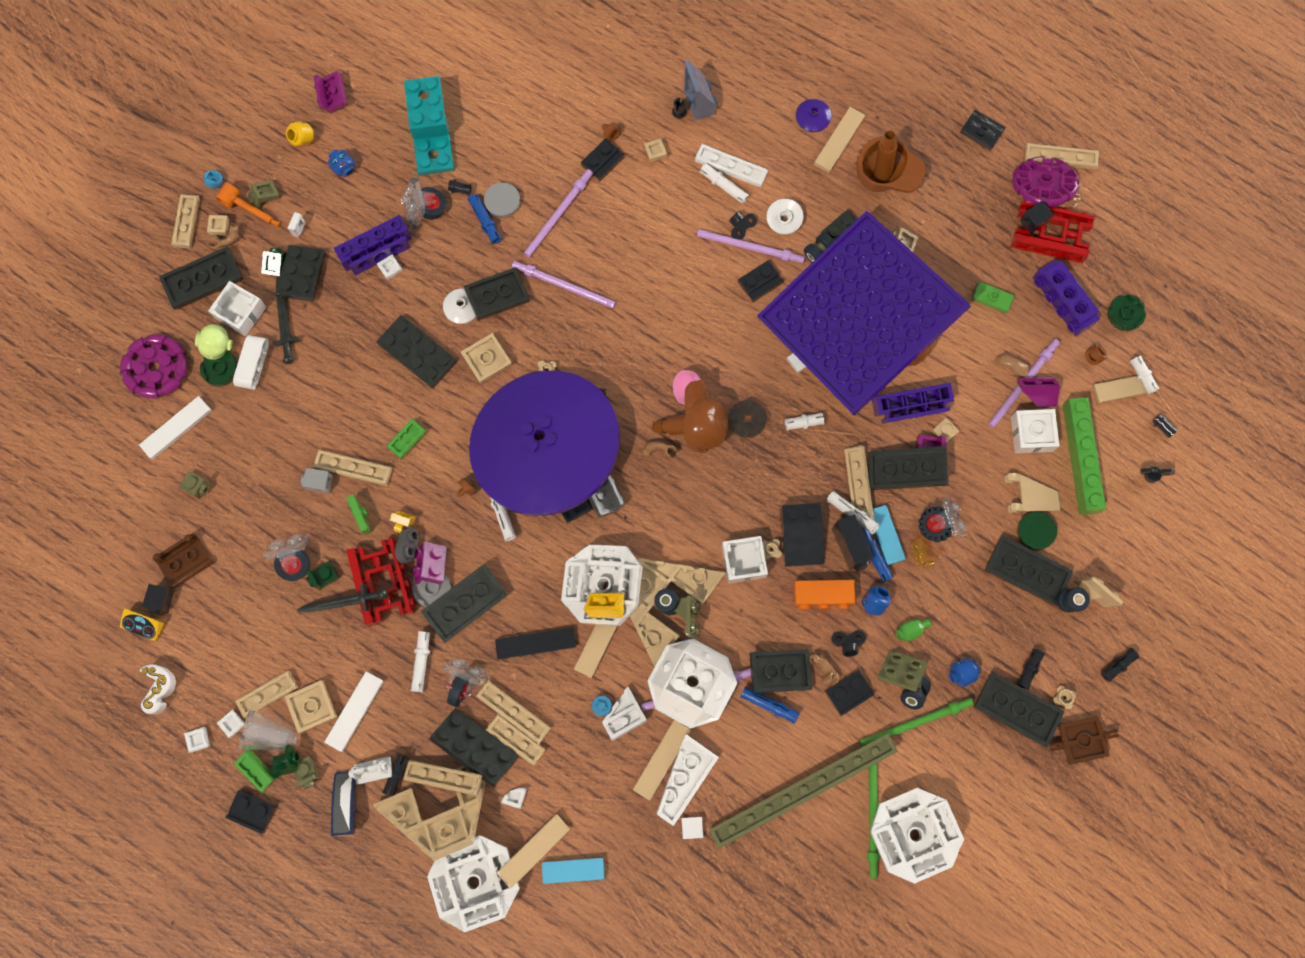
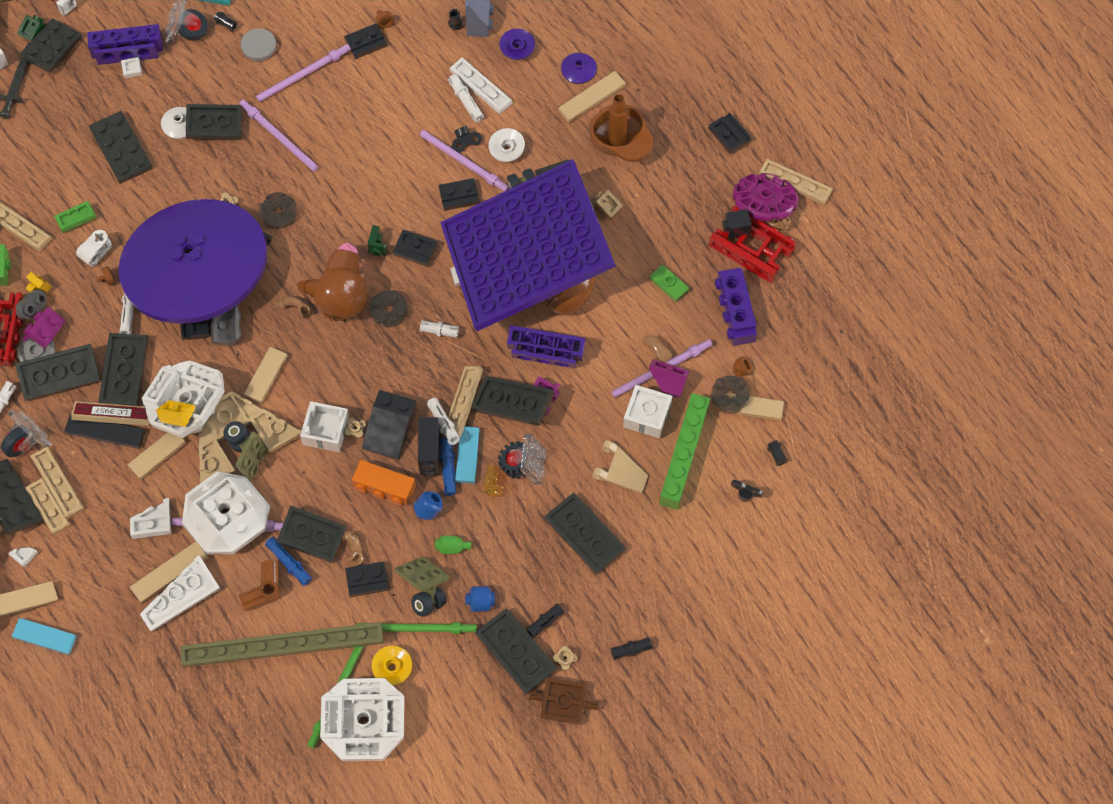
camera: 20 degrees right, 10 degrees down
(440, 467) = (94, 249): none -> white piece
(486, 358) = (178, 173): tan plate -> none
(488, 225) = (234, 55): blue pin -> none
(525, 576) = (123, 369): none -> pearl dark grey plate
(534, 624) = (110, 413): none -> tile
(588, 359) = (282, 219): none -> clear smoke plate
(601, 706) = (137, 505): dark azure tile -> none
(655, 150) = (416, 48): tan plate -> none
(662, 528) = (265, 375): none -> tan tile
(692, 827) = (167, 640): white tile -> none
(704, 356) = (374, 242): none -> dark green bracket
(745, 349) = (415, 248): none -> black plate
(748, 105) = (517, 38): none -> dark purple dish
(757, 751) = (269, 579): none -> dark orange piece
(849, 642) = (387, 535): black piece -> none
(923, 769) = (392, 656): none -> yellow dish
(946, 429) = (568, 384): tan plate -> none
(1037, 530) = (611, 502): dark green tile -> none
(1088, 588) = (629, 565): plate -> none
(1107, 378) = (733, 384): none -> clear smoke plate
(1126, 312) = (790, 341): dark green tile -> none
(1144, 375) = (777, 399): white pin -> none

